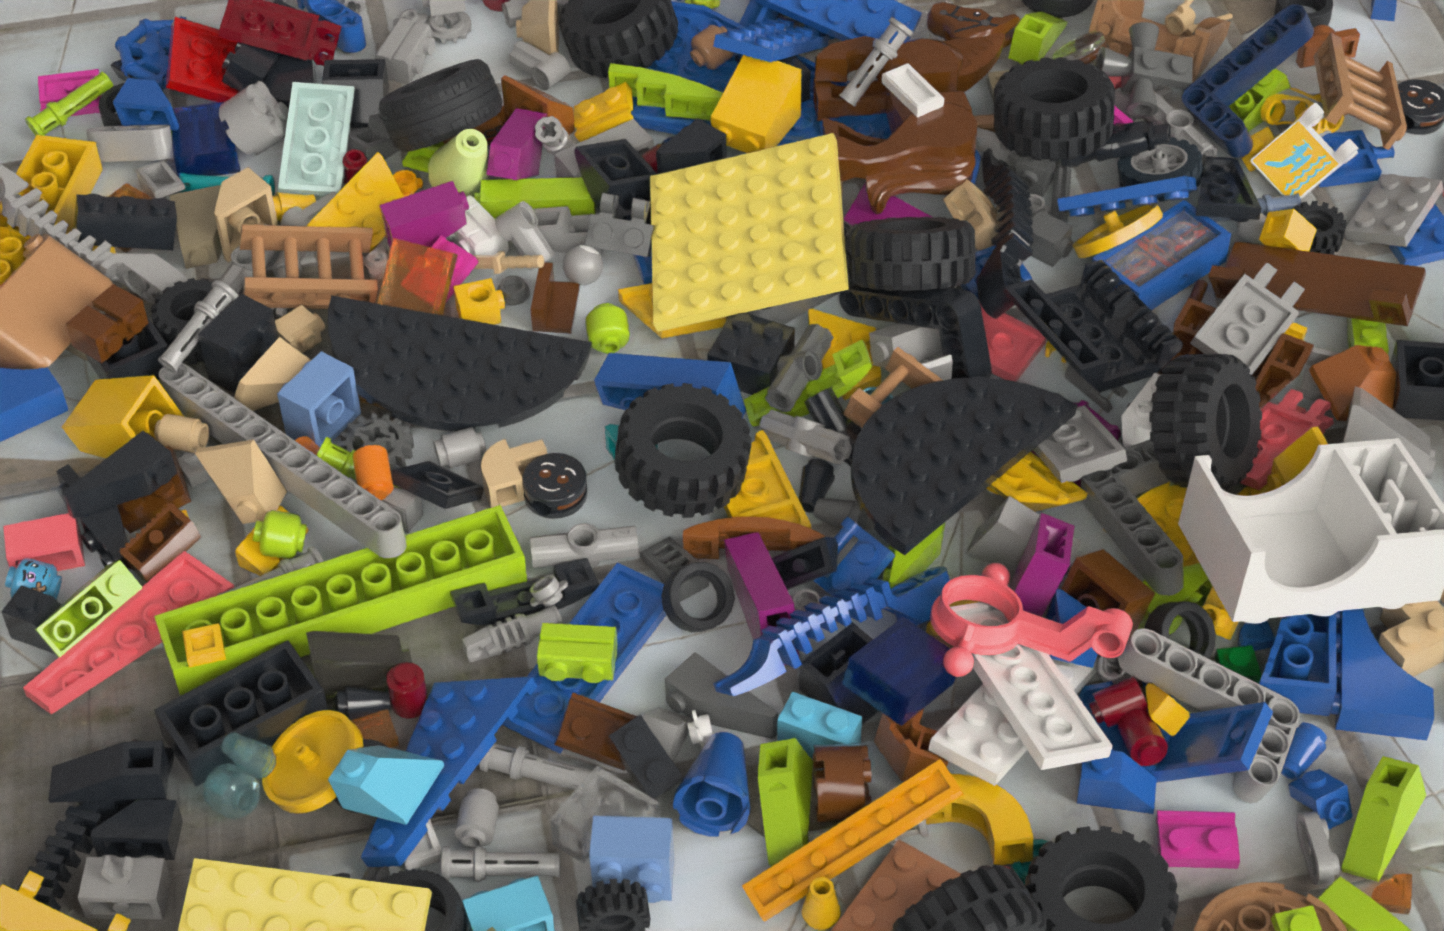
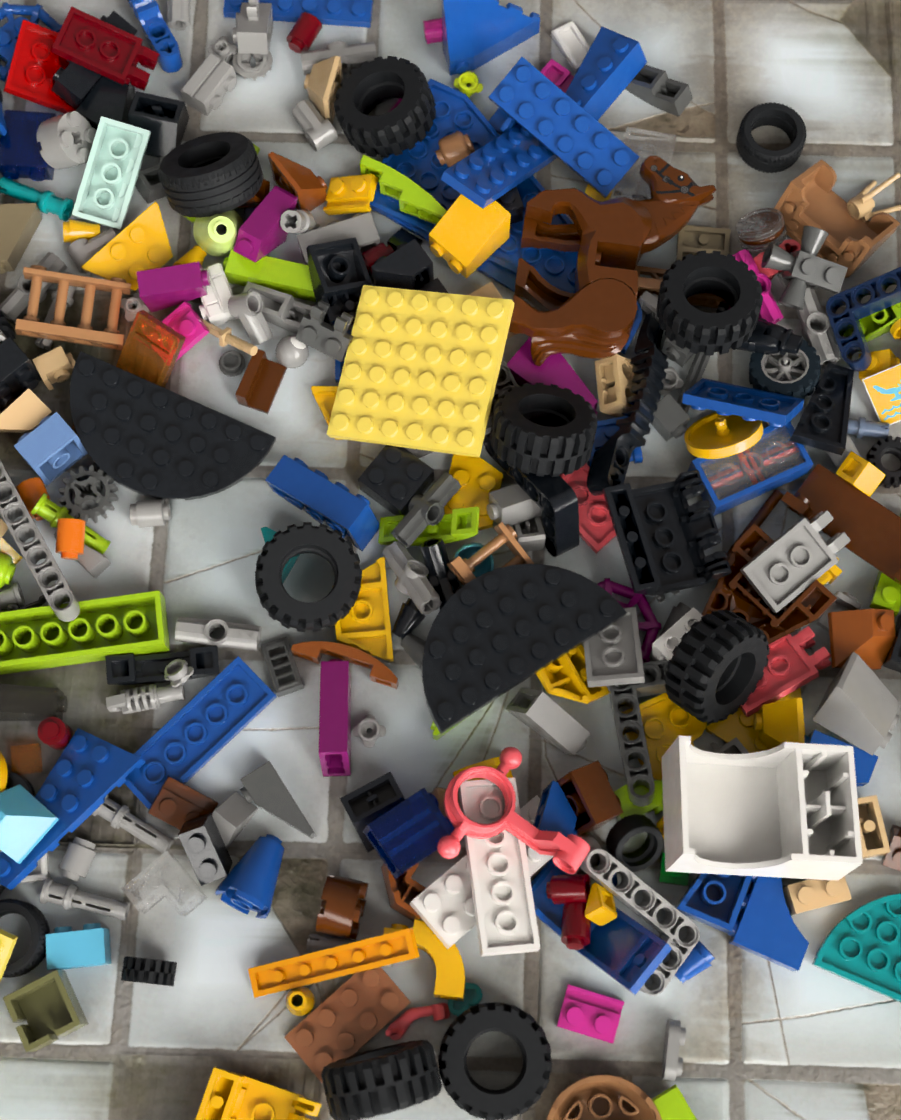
camera: 15 degrees right, 25 degrees up
(242, 201) = (34, 237): tan slope -> none
(353, 162) = (136, 205): dark red pin -> none
(359, 702) = (19, 733): black cone -> none
(407, 182) = (176, 223): light orange plate -> none
(436, 484) = (121, 548): black plate -> none
(479, 301) = (192, 364): yellow brick -> none
(504, 468) = (175, 542): tan brick -> none
(554, 485) = (212, 567): black head -> none
(577, 652) = (182, 740): lime brick -> none
(607, 327) = (292, 424): lime head -> none
(635, 851) = (172, 931): medium blue brick -> none
(700, 729) = (258, 825): white plate -> none
(723, 589) = (296, 726): black tyre -> none
(777, 645) = (442, 754): blue piece -> none
(784, 796) = (298, 907): lime slope -> none
(807, 562) = (375, 697): black slope -> none
(817, 723) = (342, 850): medium azure brick -> none
(864, 560) = (410, 714): blue plate -> none
(889, 51) = (584, 211): light grey pin -> none
(912, 90) = (594, 262): white tile -> none
(1035, 36) = (732, 196): lime slope -> none
(1043, 563) = (547, 759): magenta slope -> none
(1117, 784) = (552, 957): blue slope -> none
(1324, 795) = (693, 1005): blue bracket -> none
(1383, 817) = (728, 1042): lime slope -> none
(1395, 894) = (716, 1099): clear orange tile -> none

